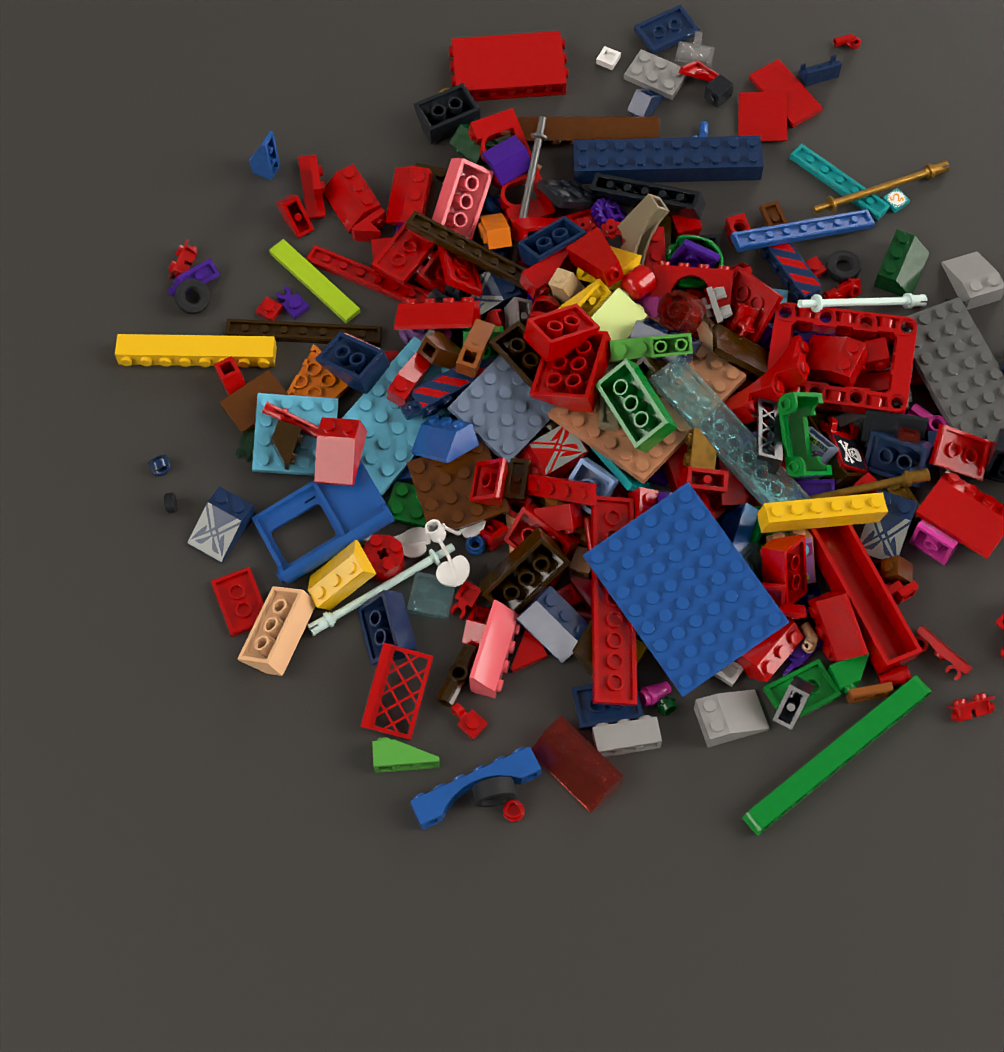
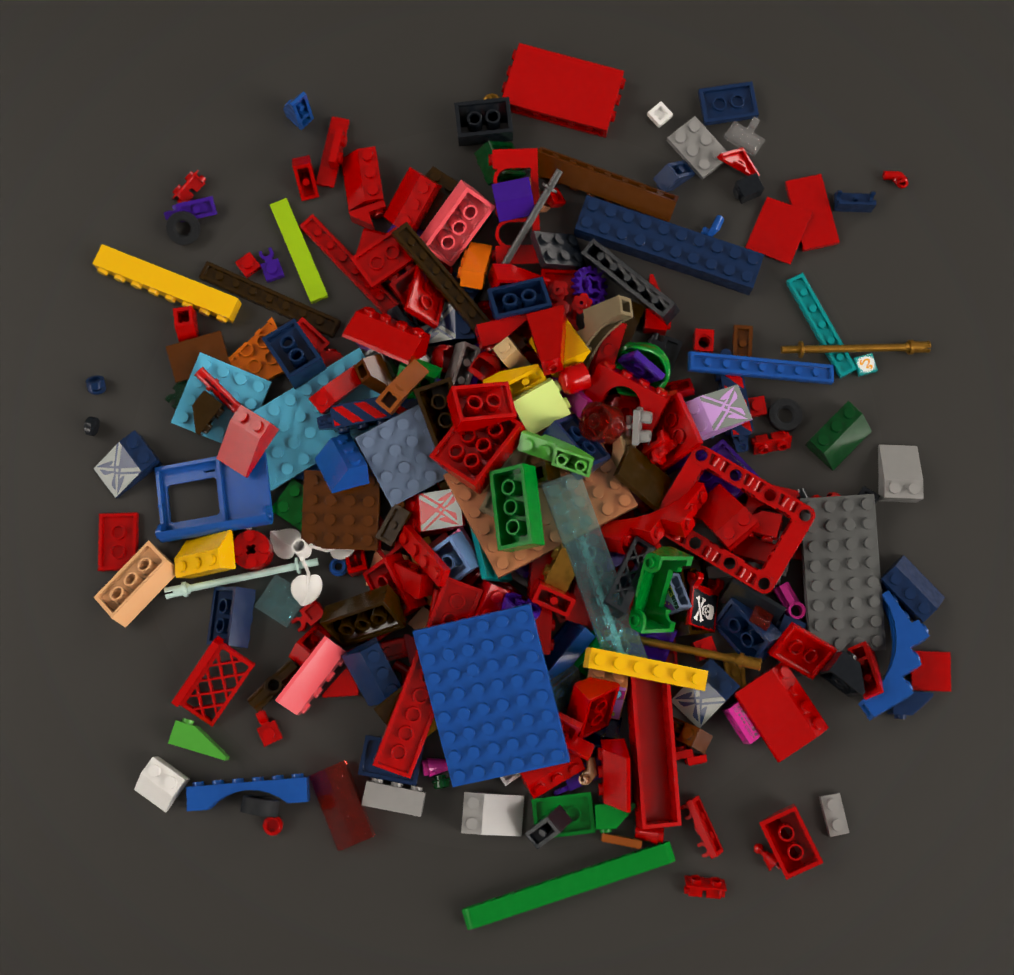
camera: 20 degrees right, 15 degrees up
(380, 812) = (161, 783): none -> white slope
(489, 482) = (365, 521): red slope -> none
(492, 204) = (488, 232): blue plate -> none
(544, 157) = (556, 199): none -> red plate
(785, 274) = (719, 411): none -> lavender slope
(908, 301) = (826, 475): light aqua bar -> none

